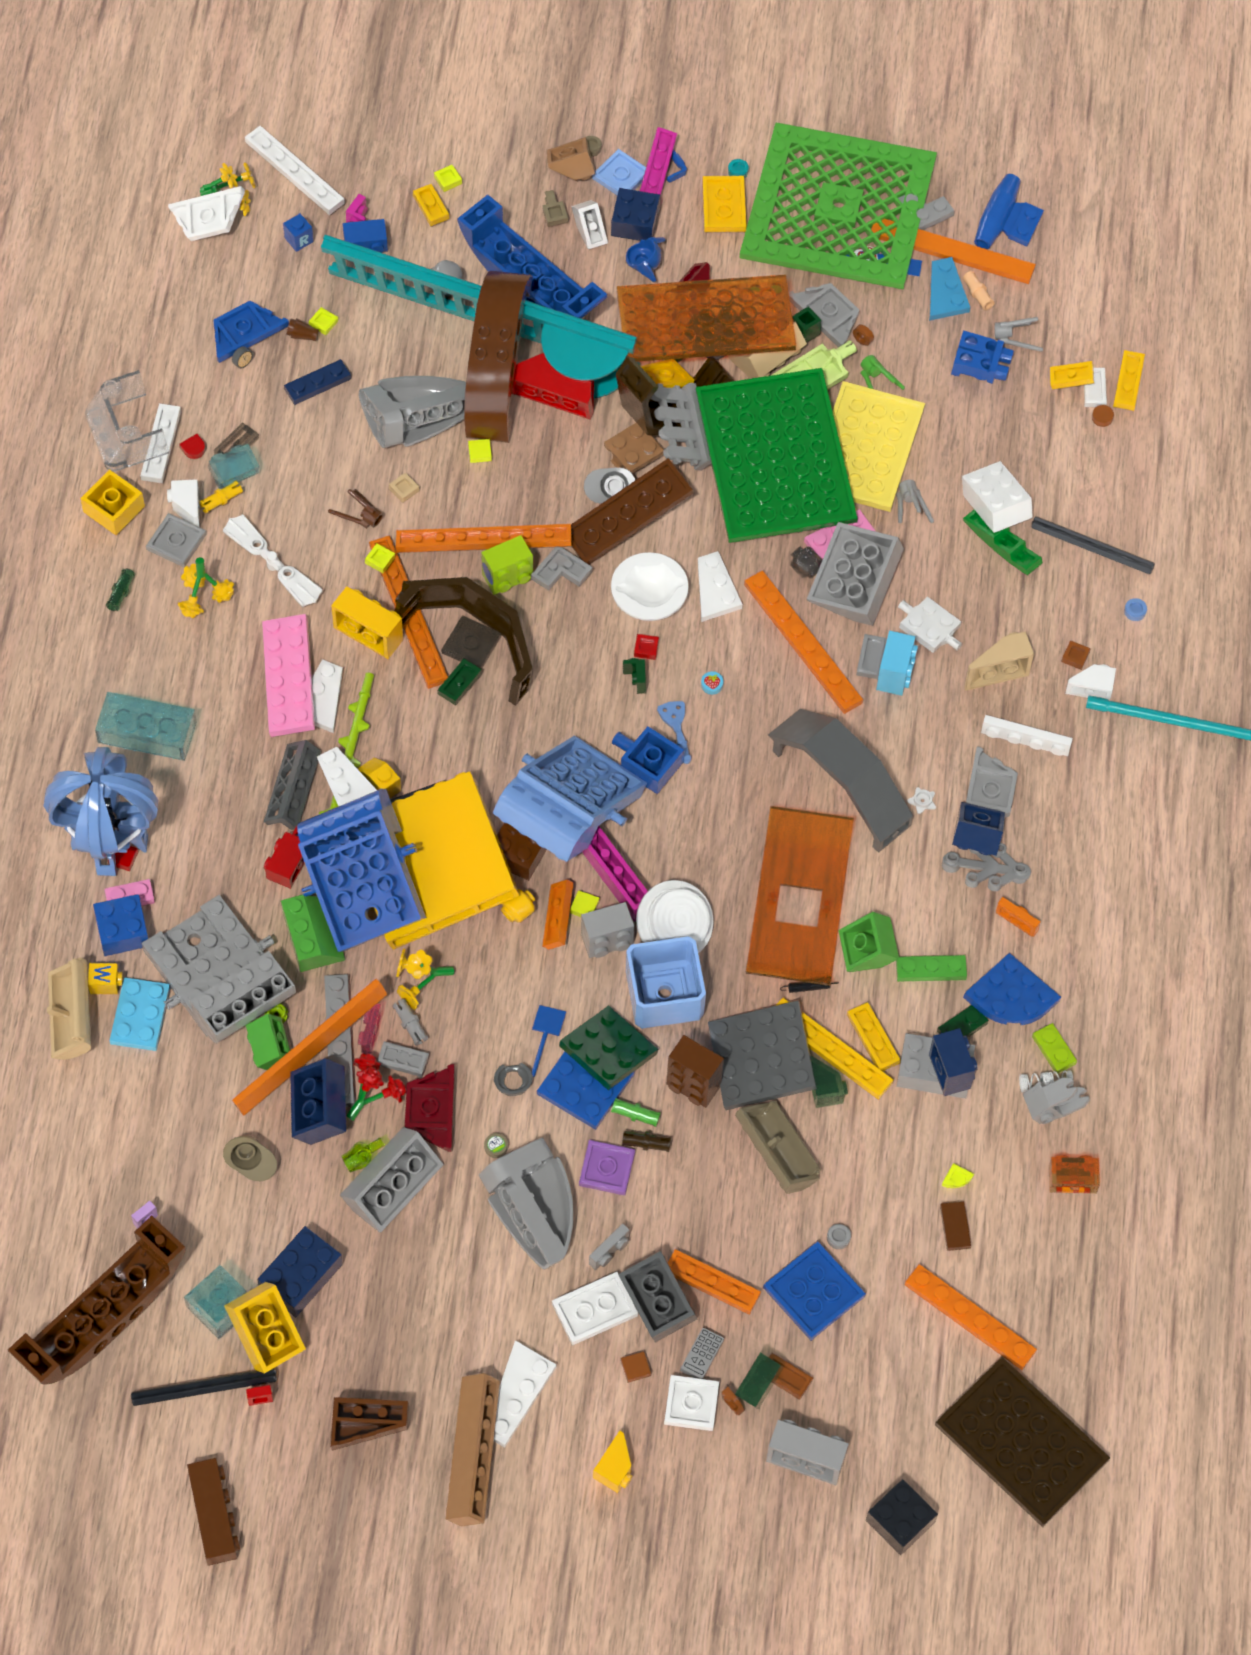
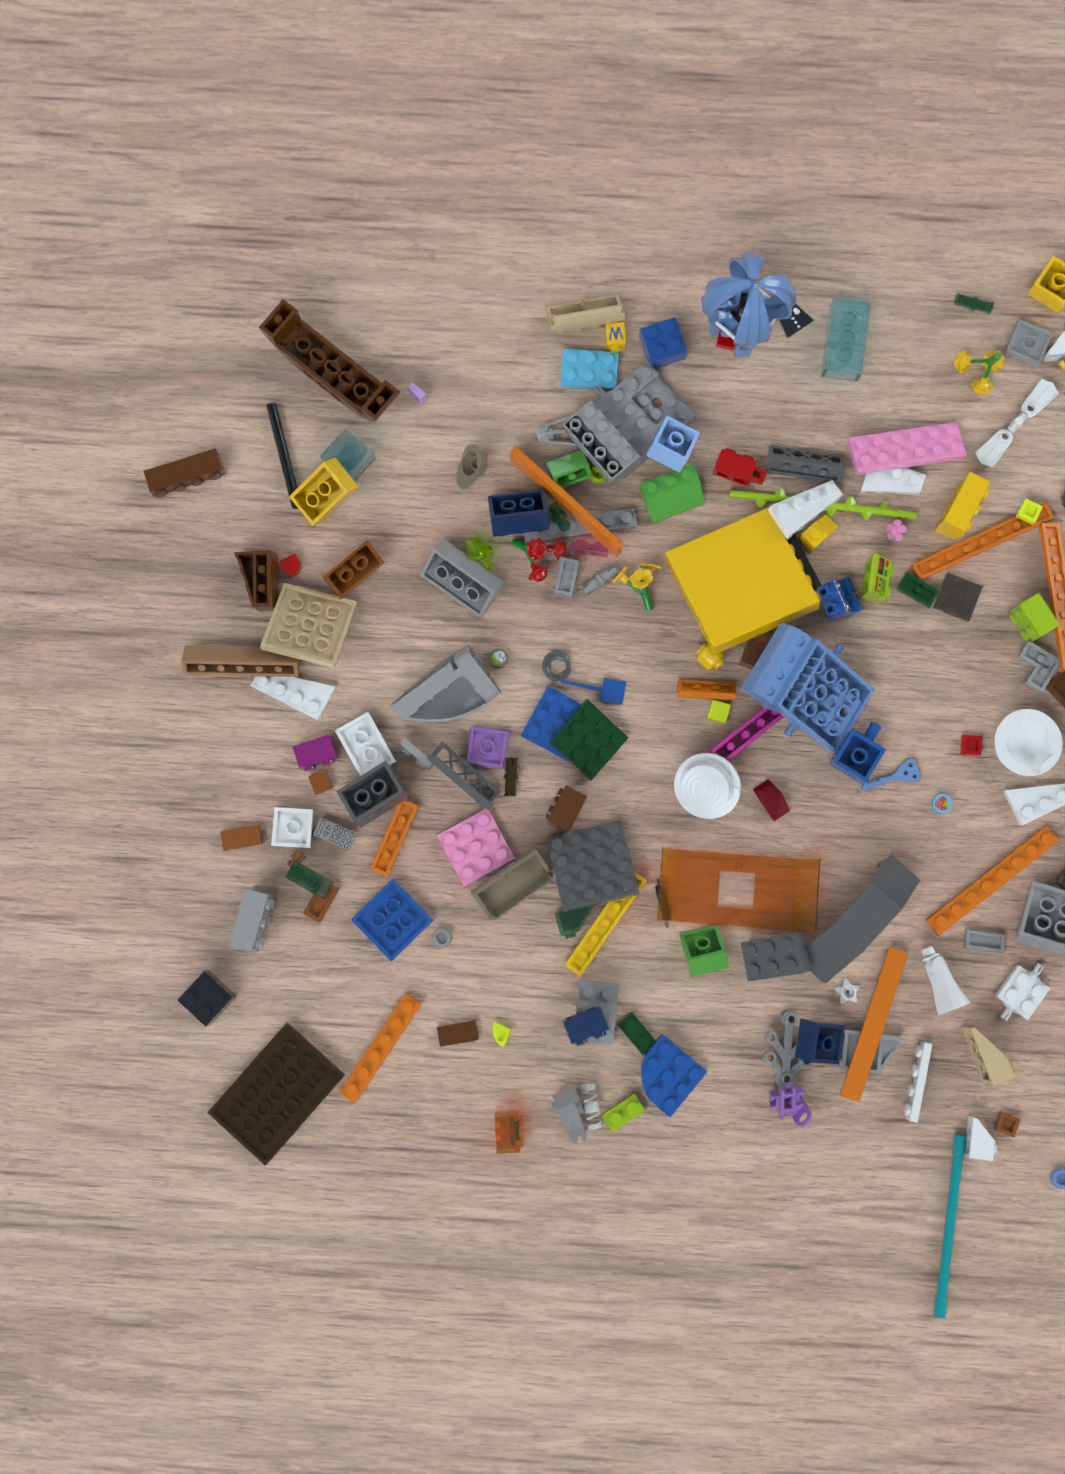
camera: 90 degrees right, 20 degrees up
(142, 888) = (695, 355): bright pink plate -> none
(221, 1065) = (547, 434): none -> light grey plant
(256, 915) = (673, 444): none -> light blue brick
(259, 1395) = (277, 497): red tile -> none
(302, 1270) = (378, 515): dark blue brick -> none
(332, 1053) = (559, 516): none -> clear green pin
(351, 1386) = (290, 565): none -> red tile
(358, 867) = (723, 520): blue piece -> none
(365, 1304) = (352, 568): none -> dark orange slope
(386, 696) = (895, 530): none -> bright pink plant
(431, 1107) = (526, 603): dark red wing -> none
(435, 1360) = (309, 625): none -> tan plate
(442, 722) = (876, 579): none -> lime slope
(471, 758) = (835, 598): none -> blue hips
(482, 605) = (1000, 580): dark brown panel -> none
(598, 1368) = (315, 753): none -> magenta brick
(607, 930) = (691, 730): light grey brick -> none
(615, 1465) = (237, 772): yellow slope -> none
(635, 1112) = (535, 766): bright green pin -> none
(637, 669) = (938, 740): dark green bracket -> none
(644, 1196) = (462, 783): none -> dark grey fence
(669, 966) = (656, 766): light blue plate -> none
(694, 857) = (771, 799): none -> dark red slope
(699, 1468) = (241, 837): none -> dark orange tile
(729, 1189) = (475, 847): none -> bright pink plate
(873, 1037) = (618, 958): yellow plate -> none
(880, 863) = (775, 956): none -> dark grey brick
(897, 663) = (975, 962): medium azure brick -> none
(924, 697) = (945, 989): none -> white piece
(931, 968) = (688, 1005): bright green plate -> none
(961, 772) = (873, 1025): none -> orange tile
(1018, 916) = (741, 1078): orange plate -> none
(1046, 869) = (790, 1095): none -> medium lavender piece

